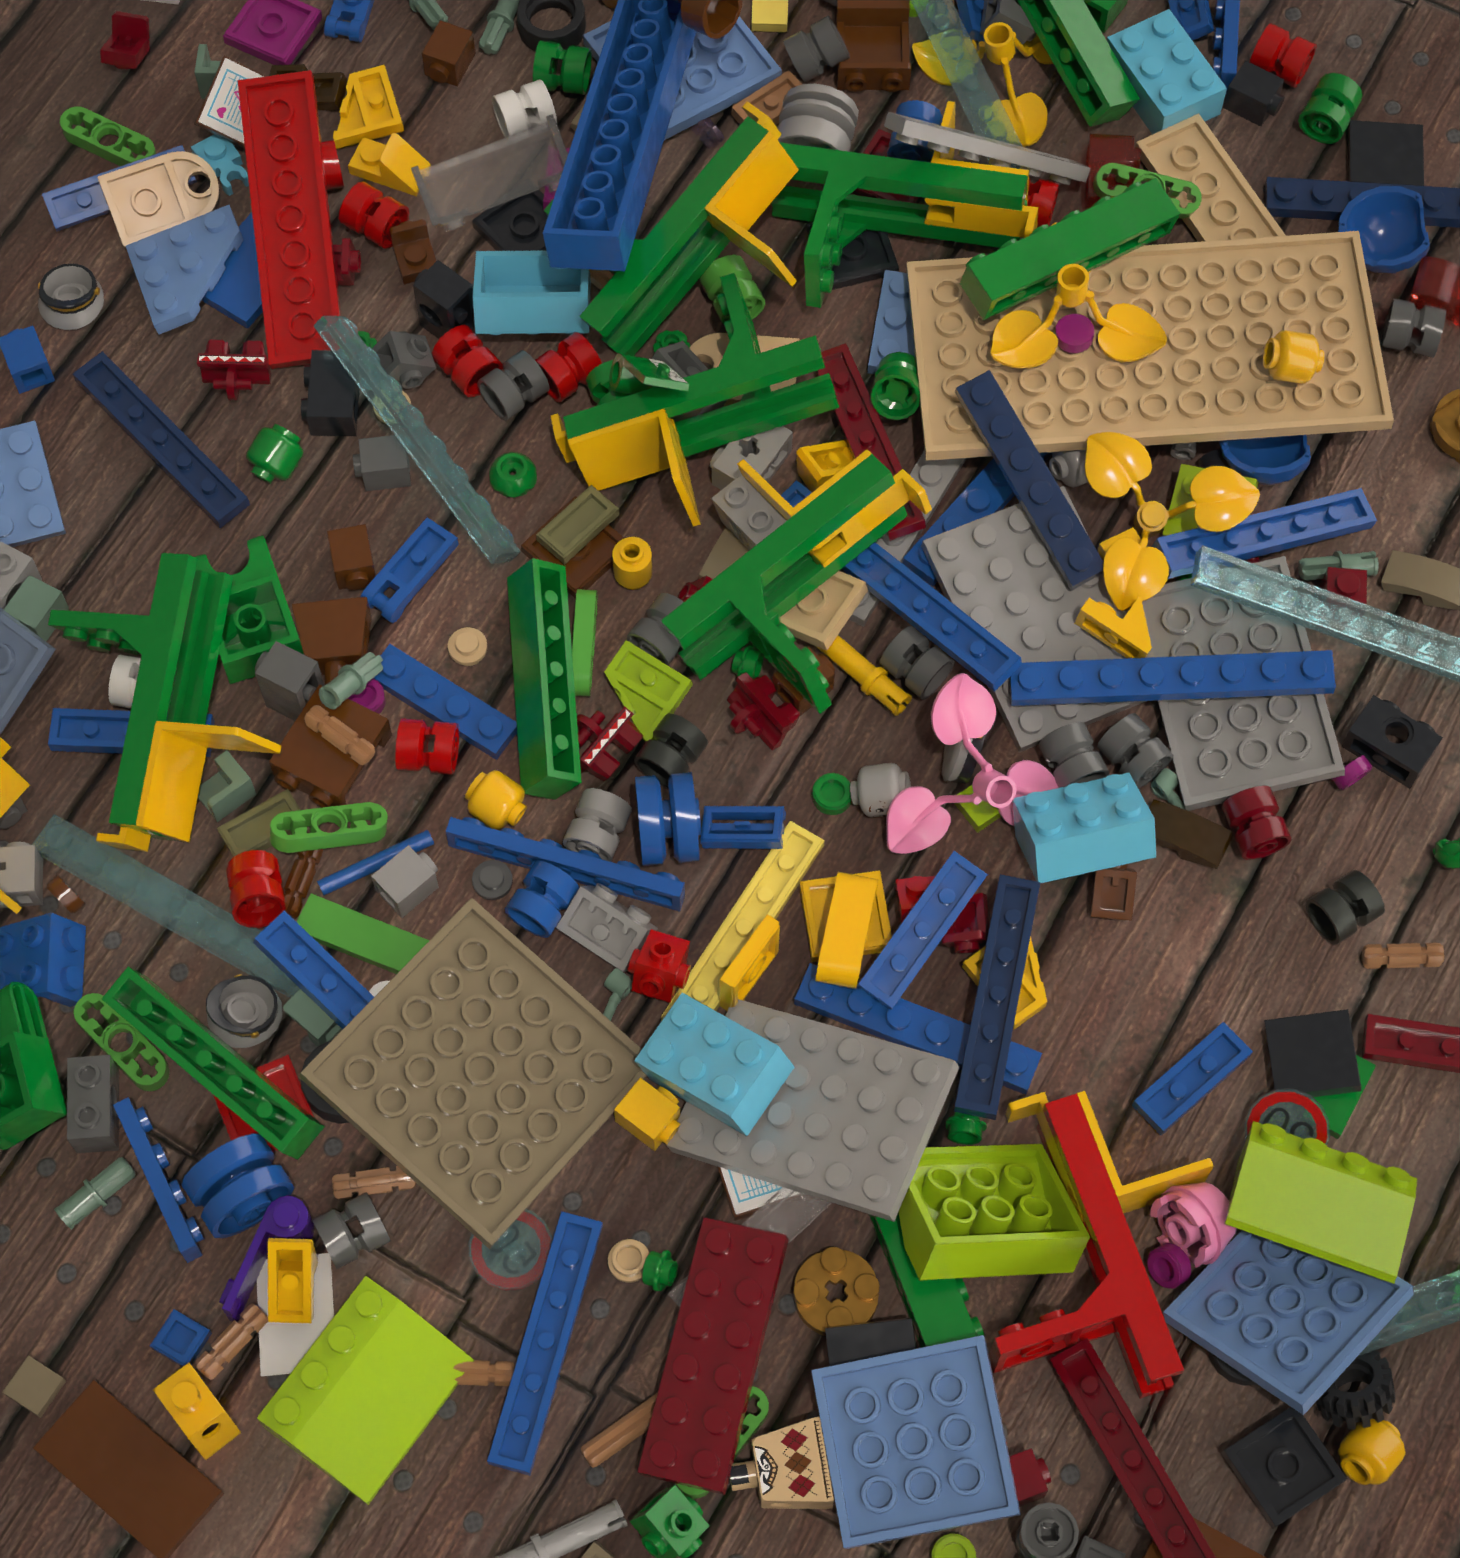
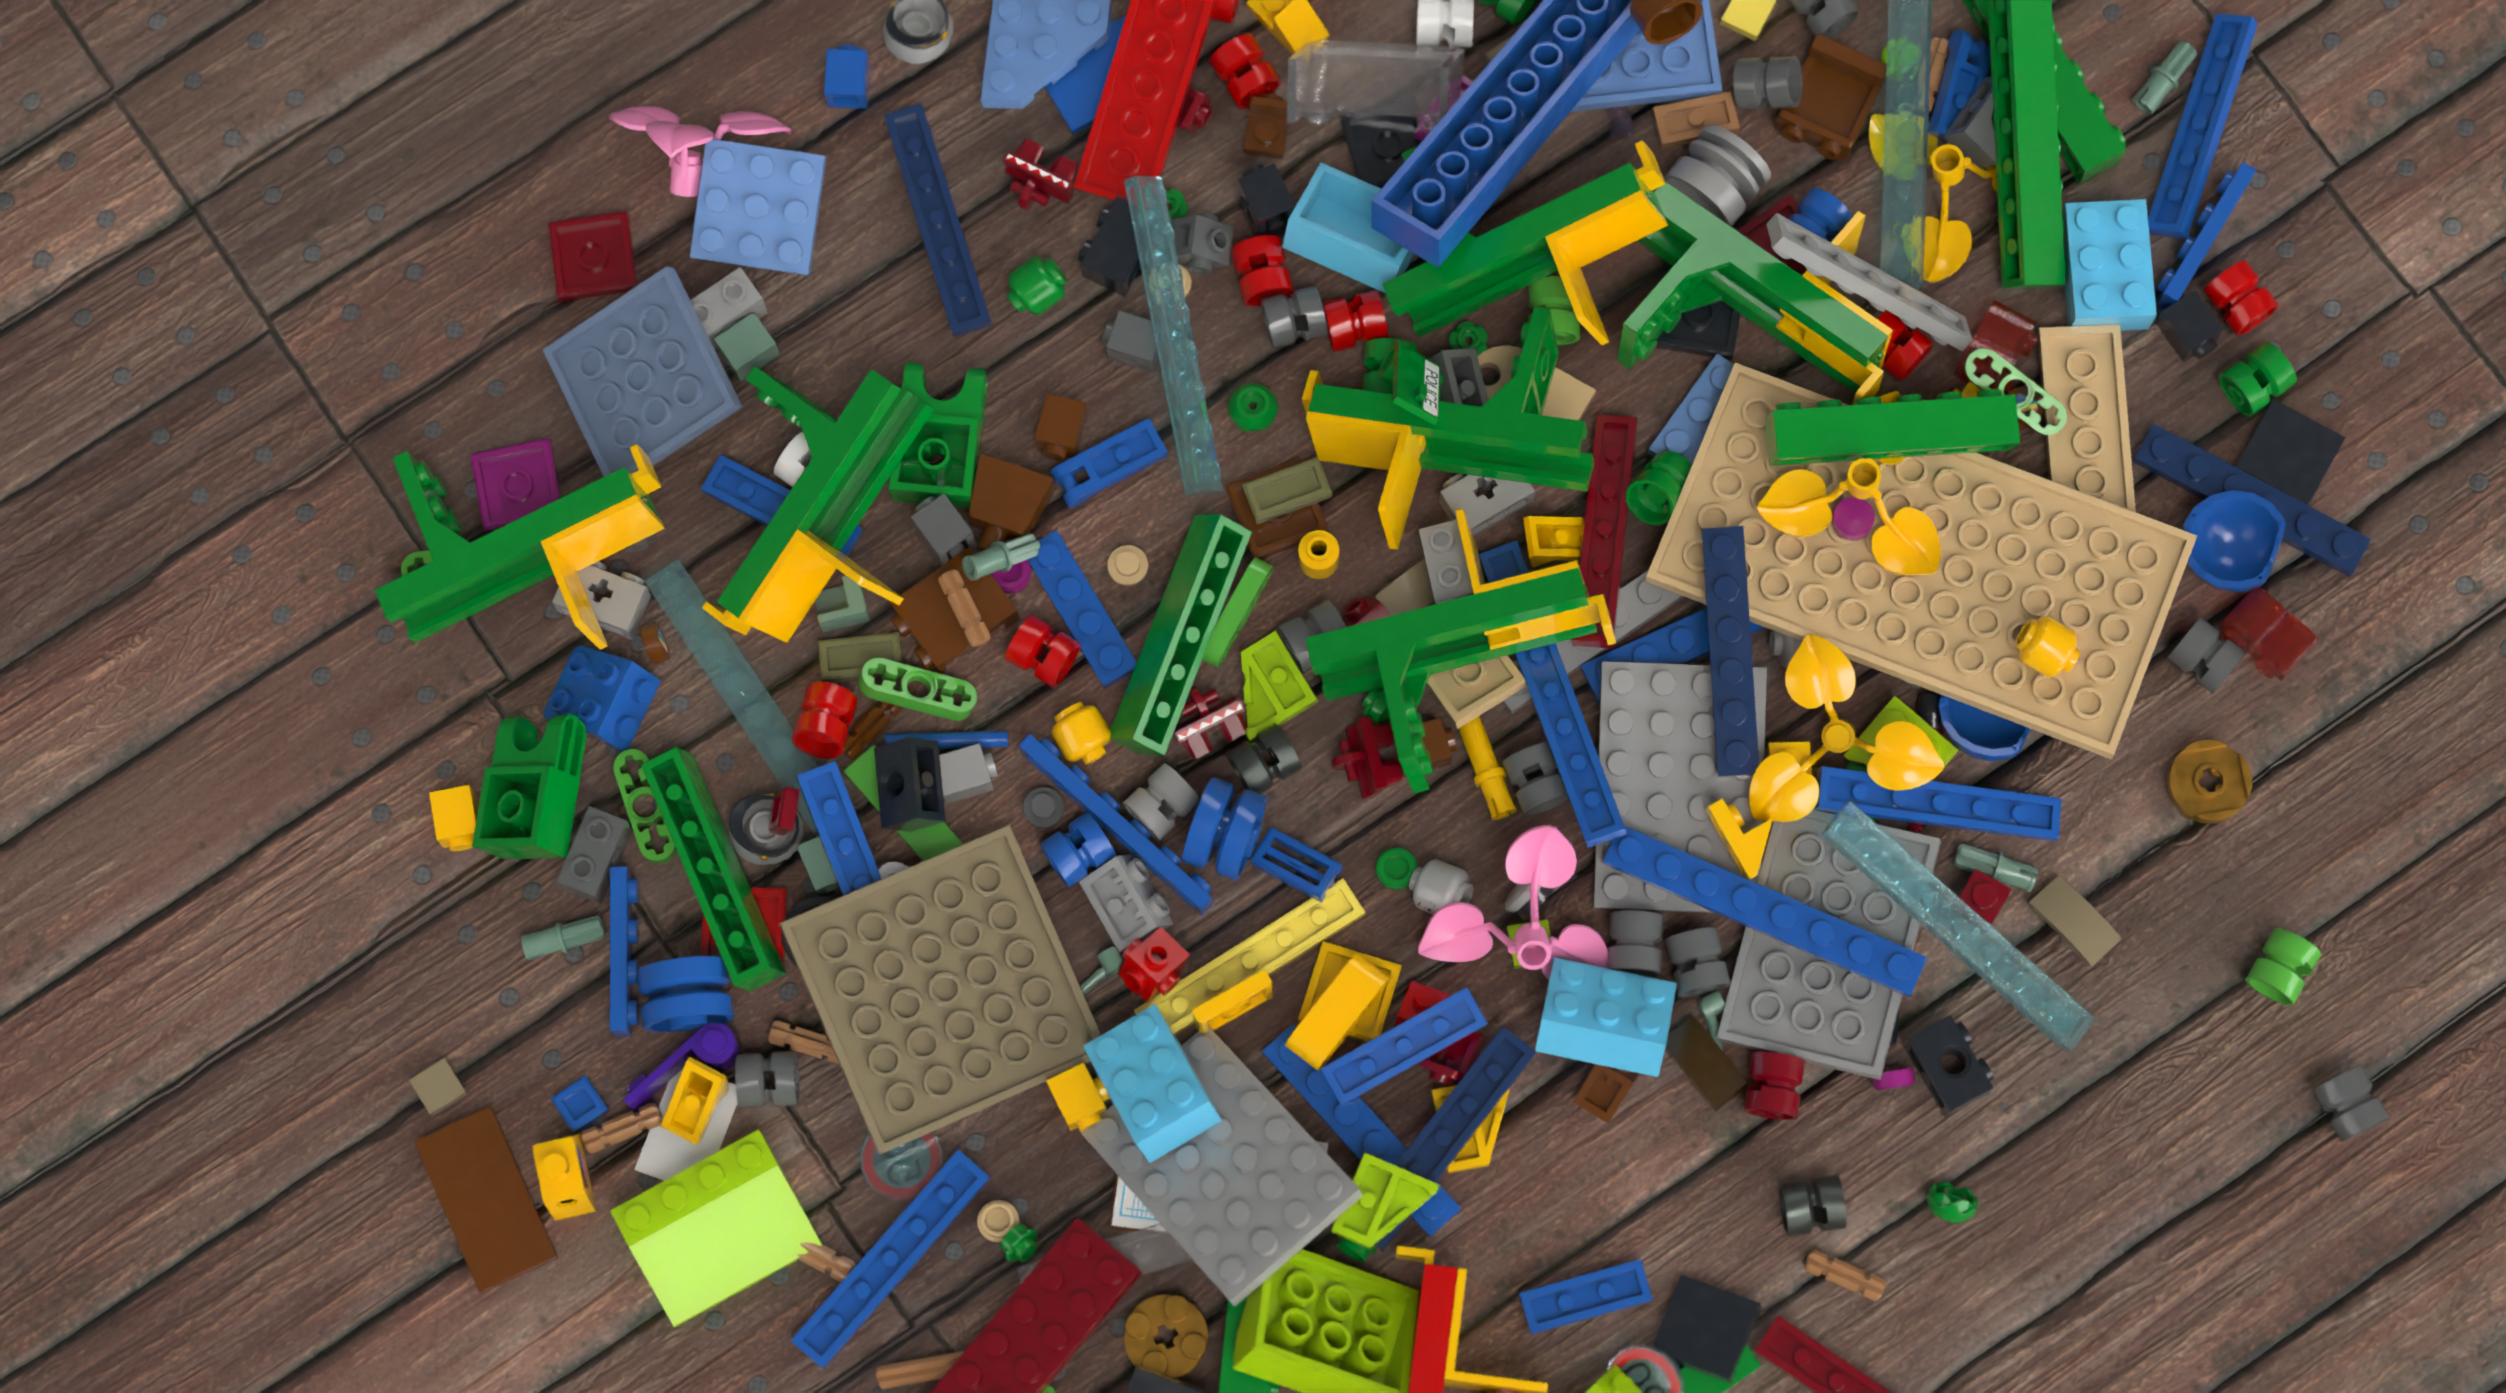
camera: 30 degrees right, 10 degrees up
(255, 981) = (784, 811): none -> dark red tile
(361, 907) = (909, 784): none -> black brick
(982, 1065) = (1387, 1200): none -> lime wing

